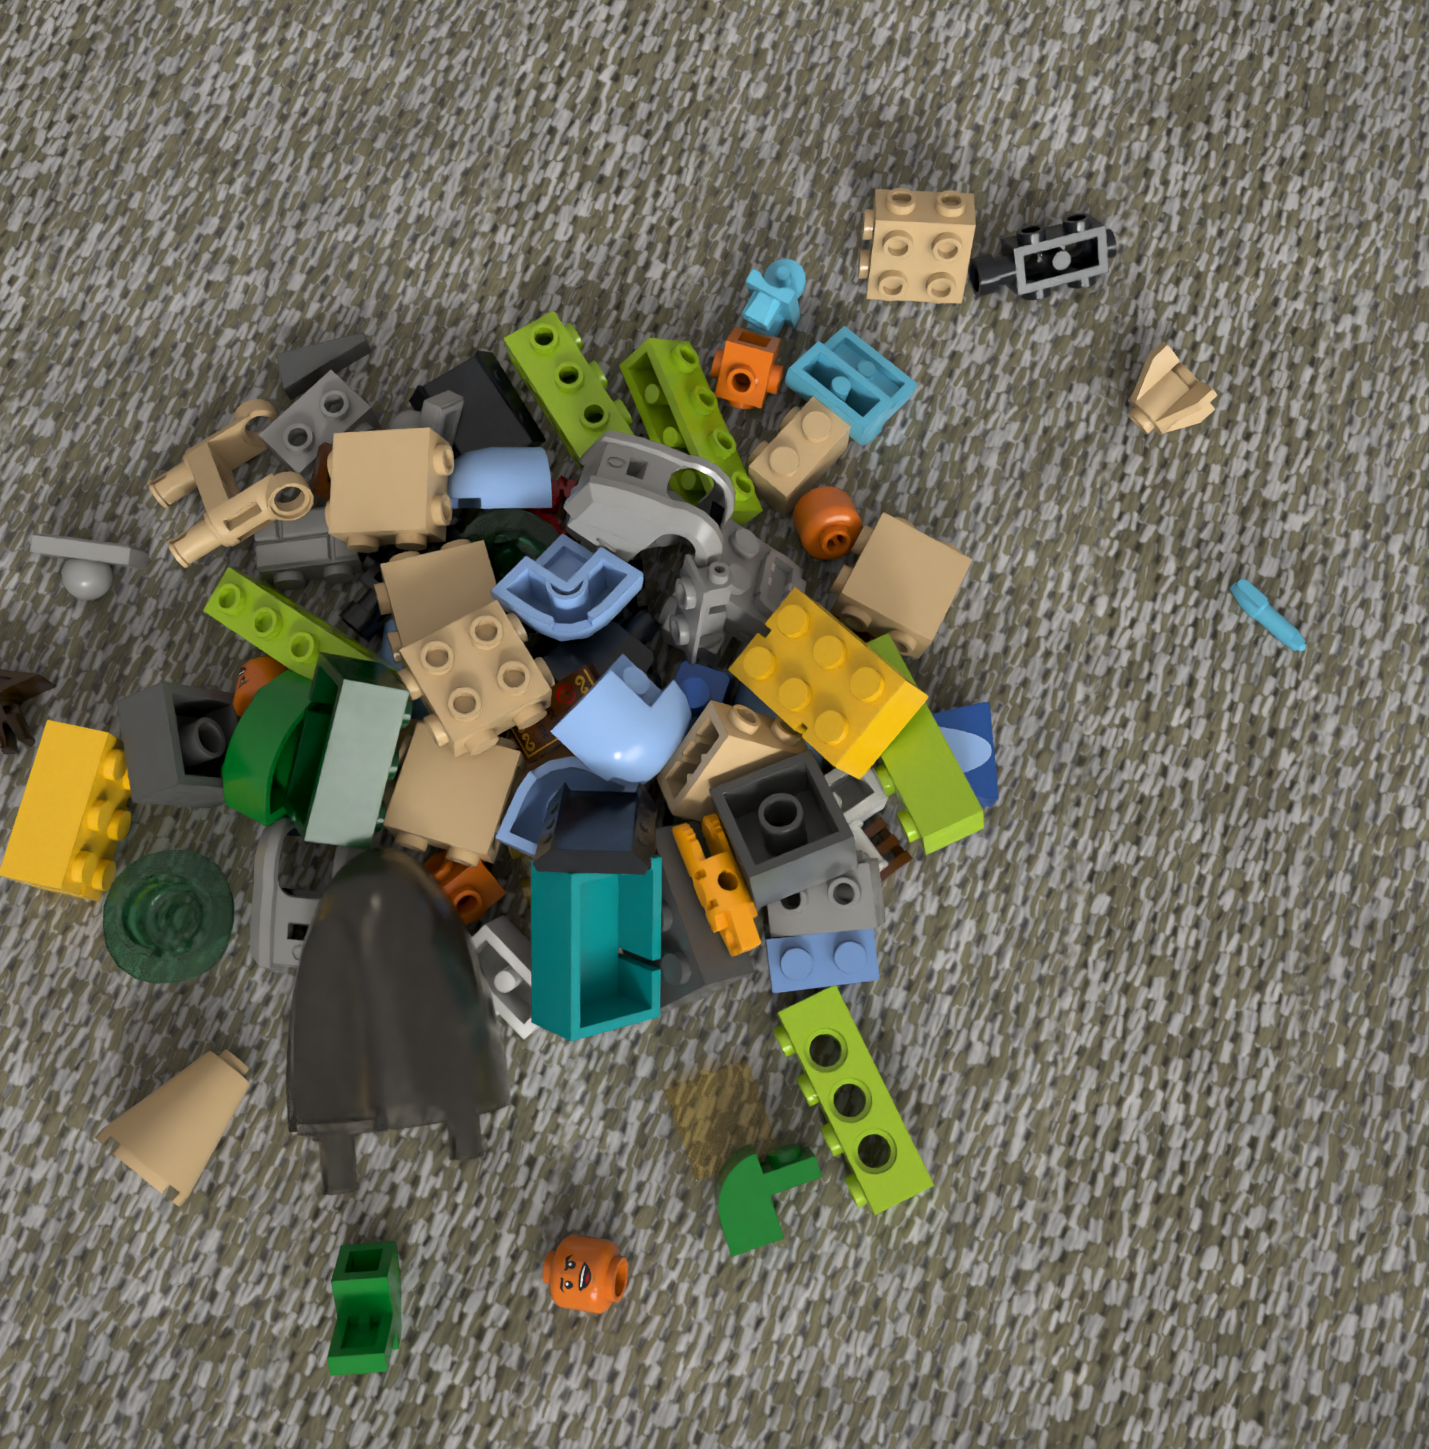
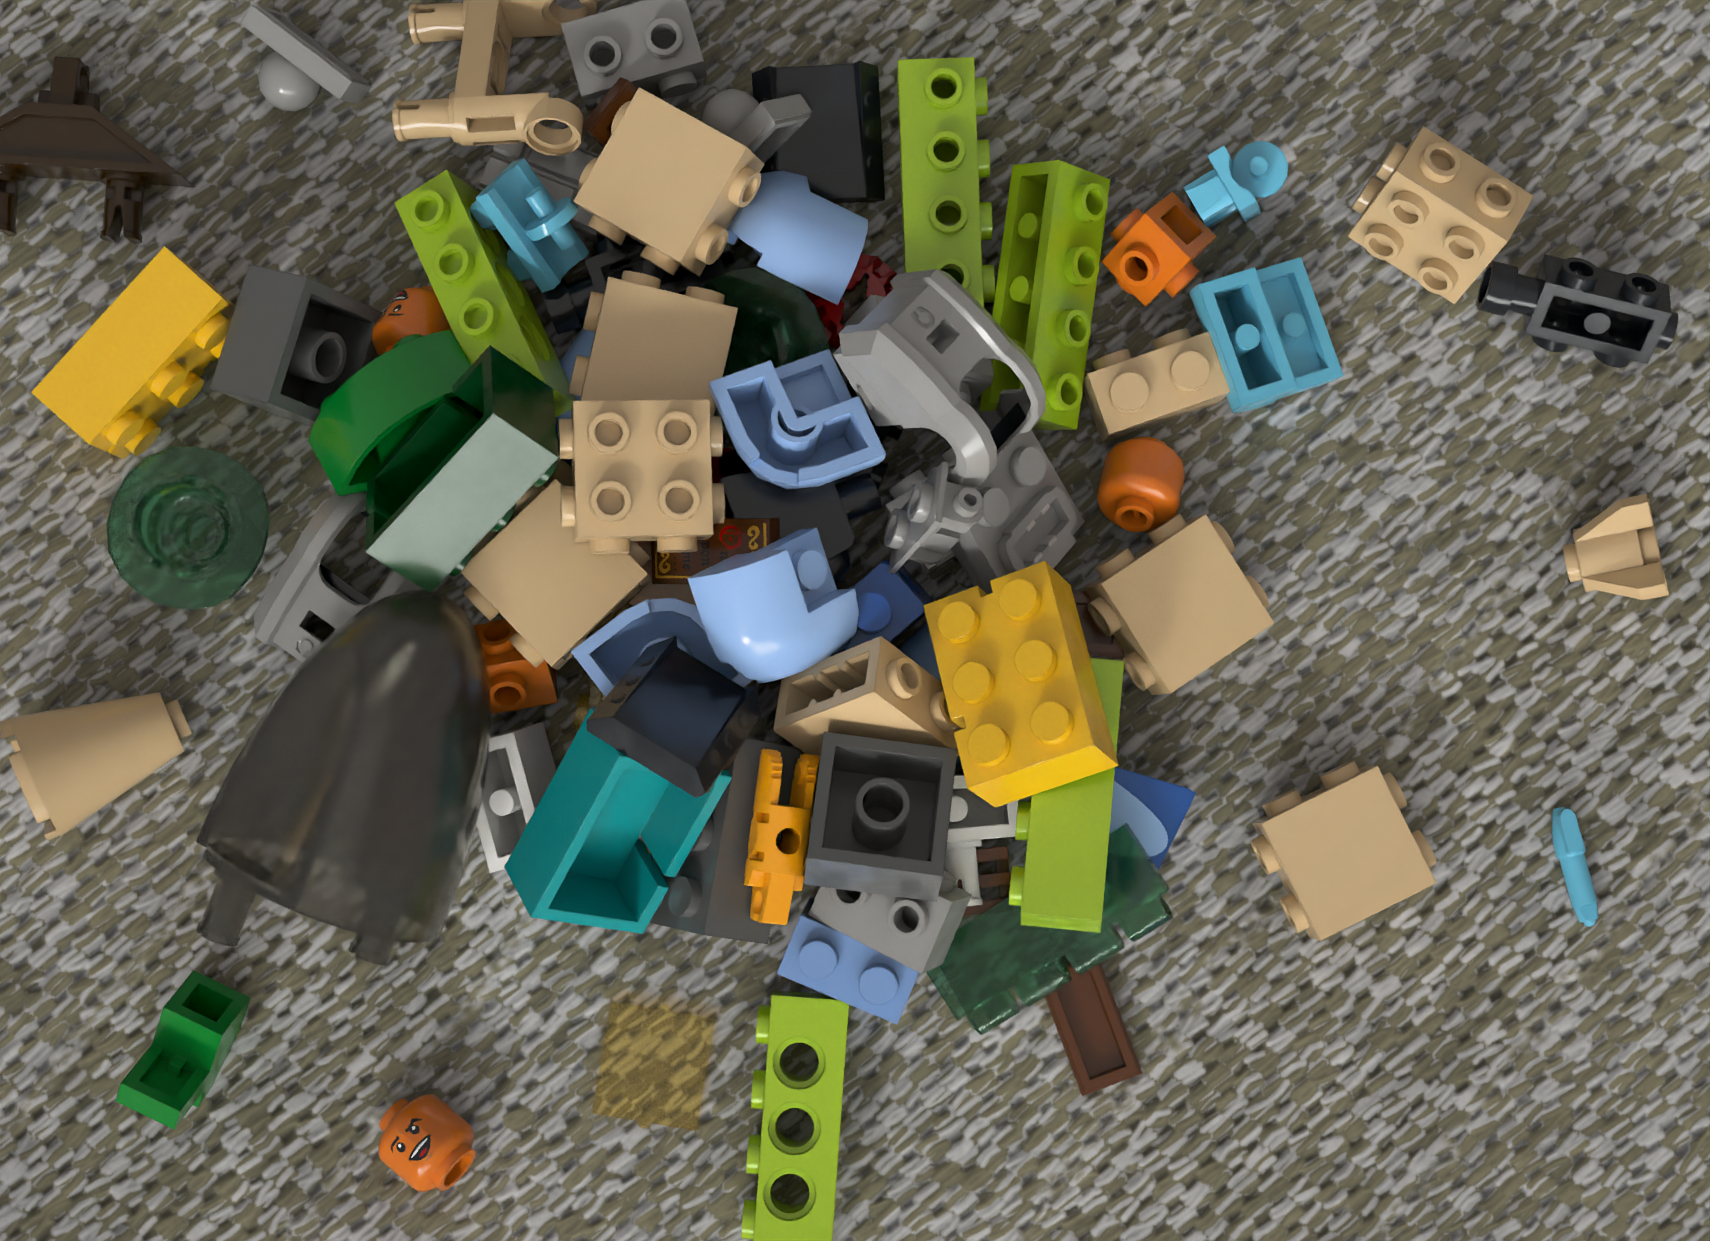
camera: 30 degrees right, 10 degrees up
(310, 571) = (532, 225): none -> medium azure hips
(746, 1189) = (640, 1152): green brick -> none
(936, 882) = (1002, 954): none -> clear green windscreen
(1011, 909) = (1092, 1031): none -> reddish brown tile
(1110, 688) = (1342, 850): none -> tan brick

